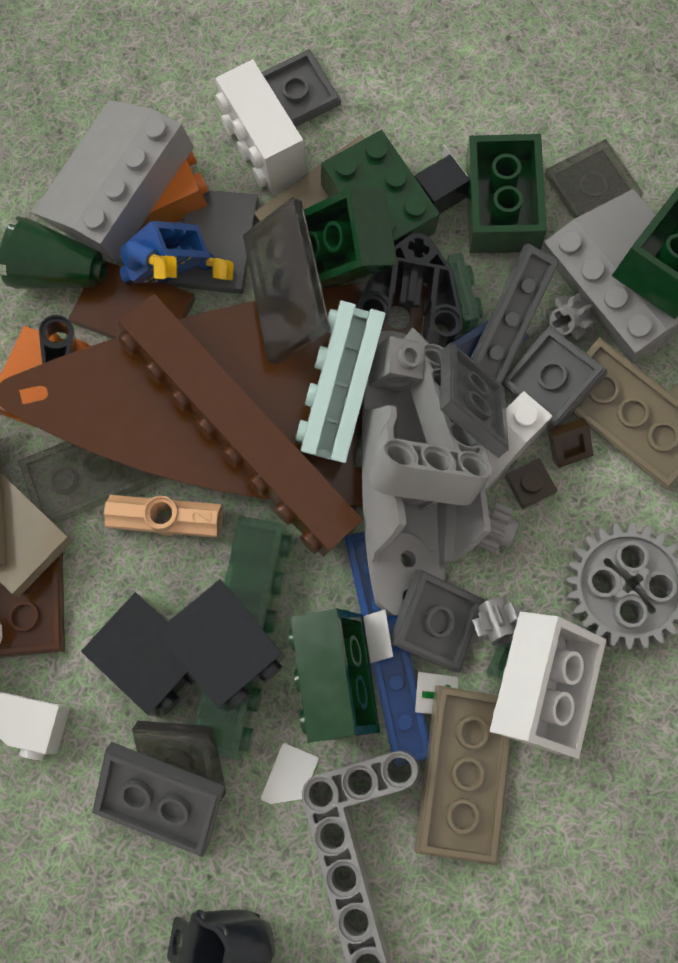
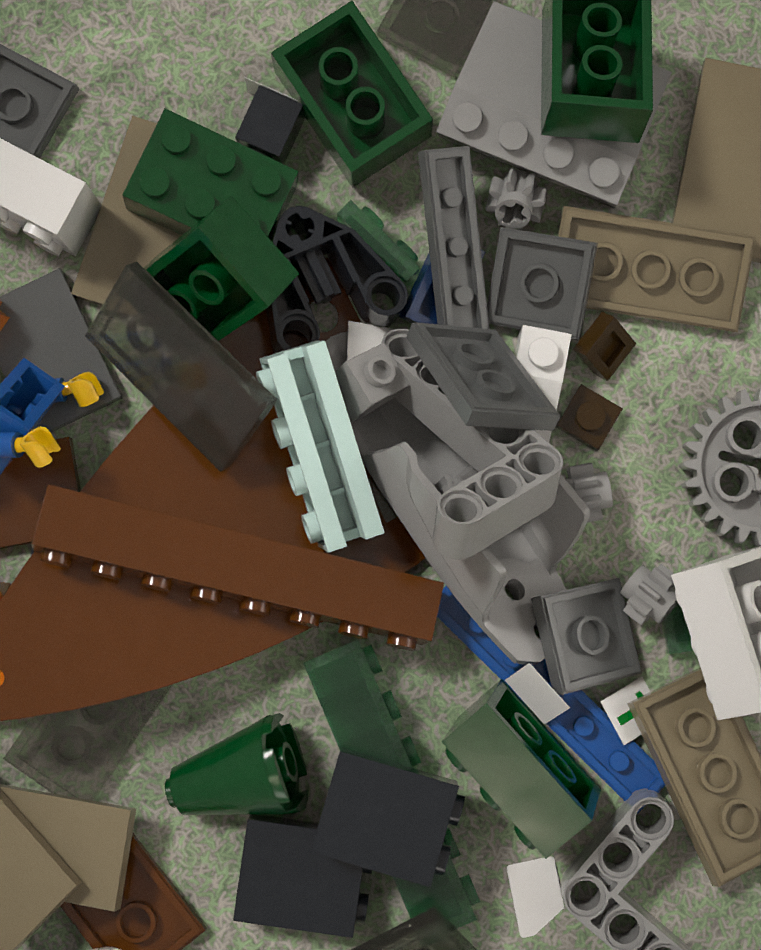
camera: 40 degrees left, 10 degrees up
(141, 514) = (187, 728): light nougat piece -> none
(155, 563) = (243, 774): none -> dark green cone

